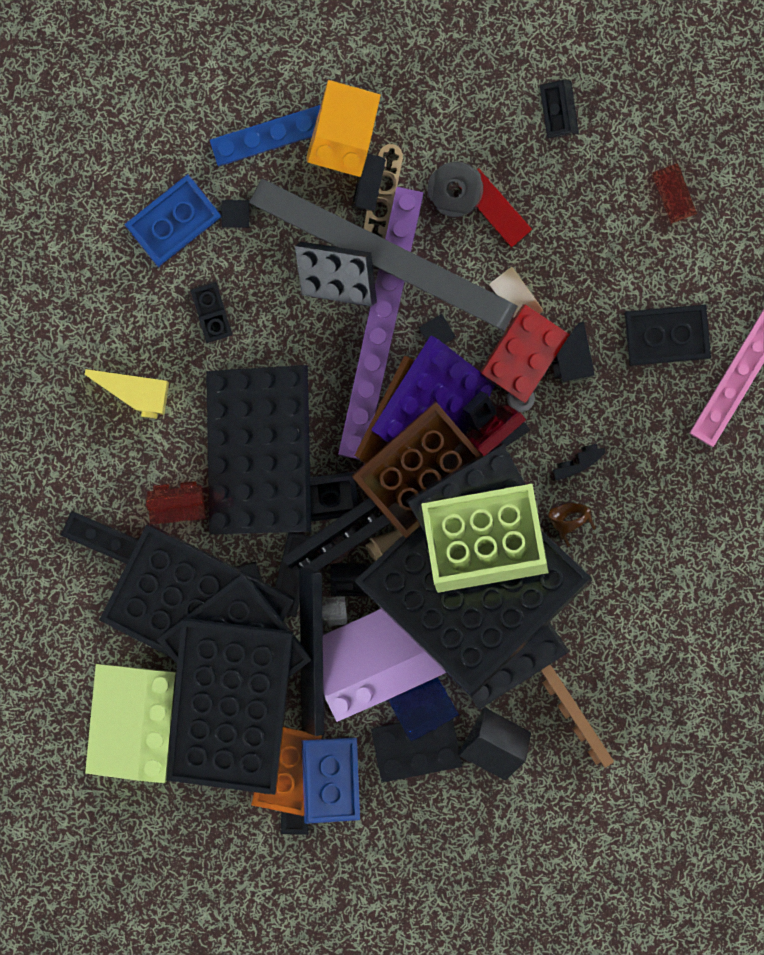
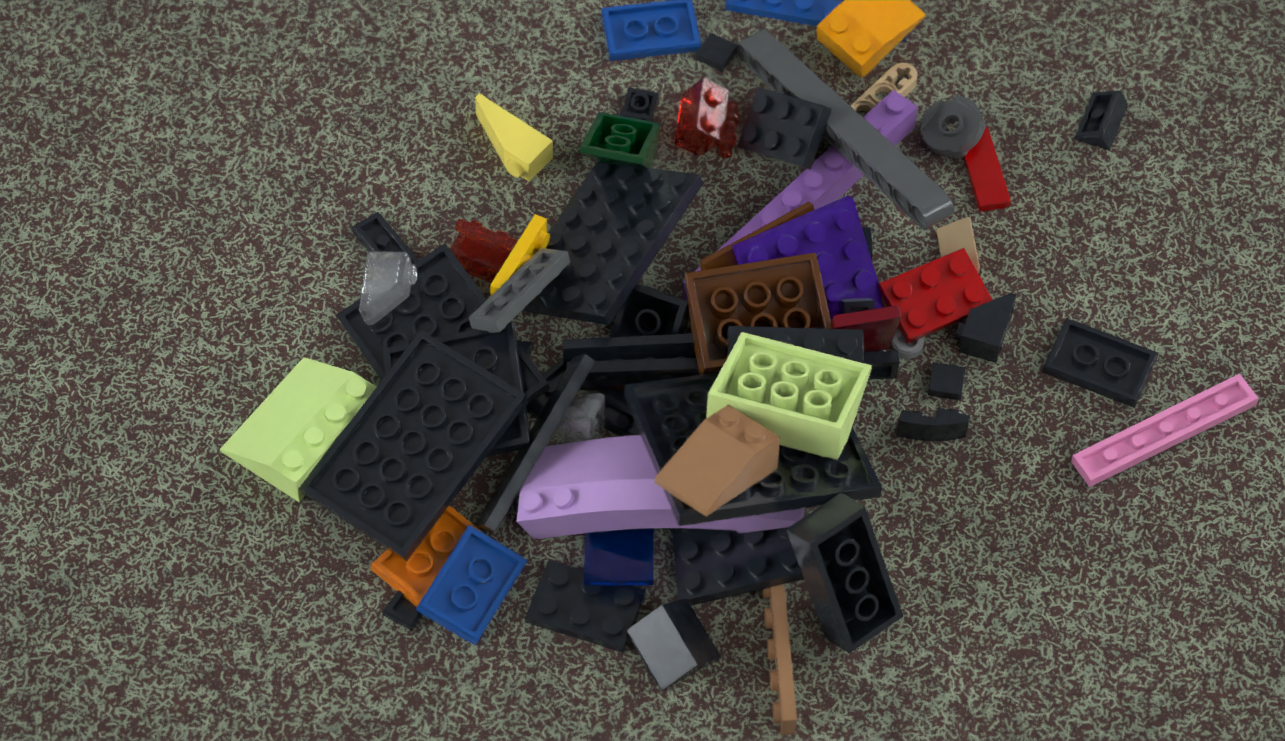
camera: 30 degrees right, 30 degrees down
(124, 585) = (385, 284): none -> clear slope
(210, 506) = (530, 242): none -> yellow plate
(222, 360) = (621, 140): none -> dark green slope
(230, 542) = (519, 290): none -> dark grey plate
(268, 289) = (707, 119): none -> clear red brick
(368, 184) = (867, 79): black slope -> none
(471, 632) = (720, 461): none -> medium nougat slope
(559, 513) = (884, 462): reddish brown piece -> none
(566, 416) = (946, 381): none -> black tile
(592, 643) = (845, 572): none -> black brick
(674, 193) = (1180, 243): clear red tile -> none

